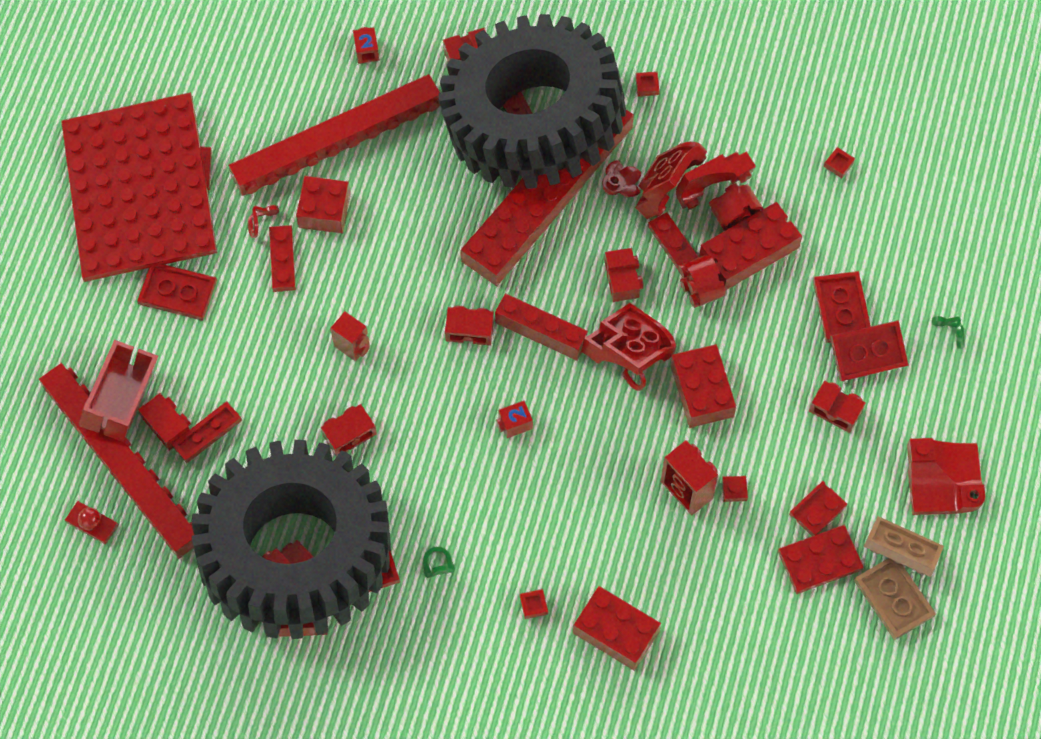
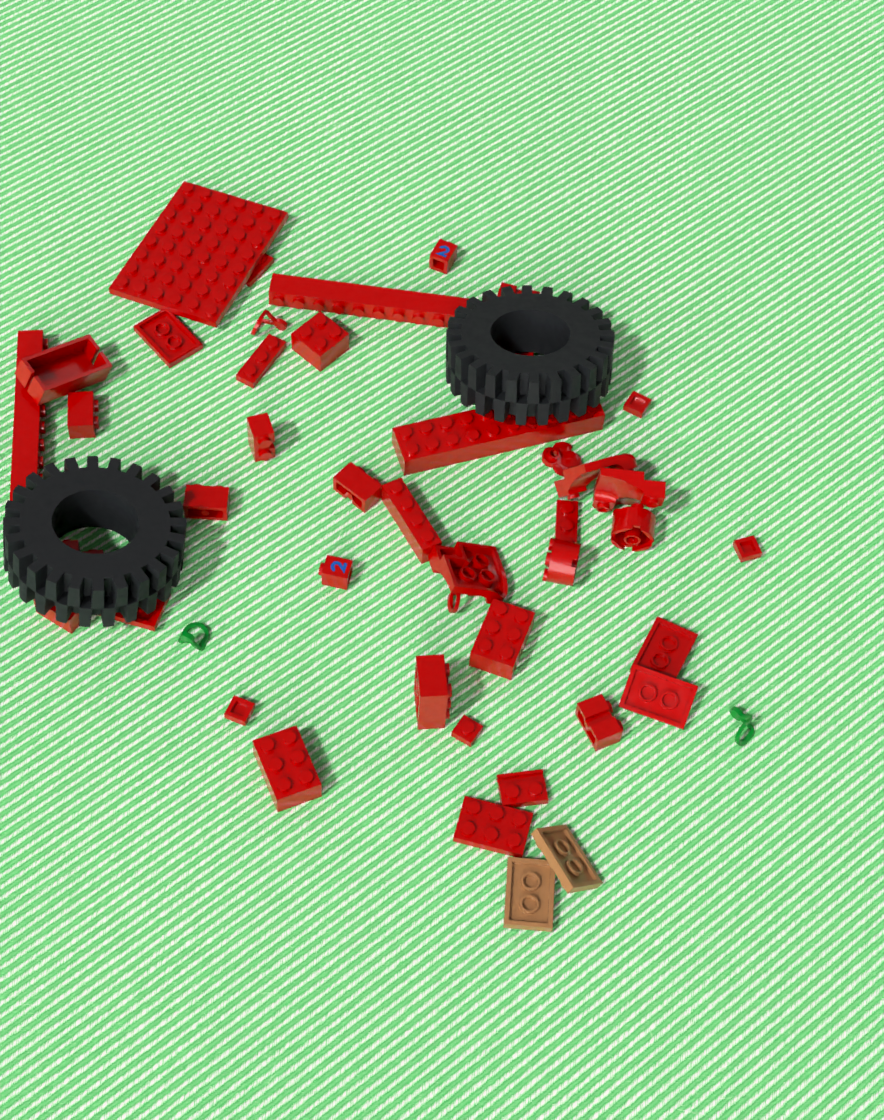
camera: 30 degrees right, 10 degrees down
(206, 432) = (105, 440): red plate -> none
(622, 274) = (504, 524): red brick -> none
(752, 244) = (624, 563): red piece -> none
(944, 477) = (645, 830): red slope -> none

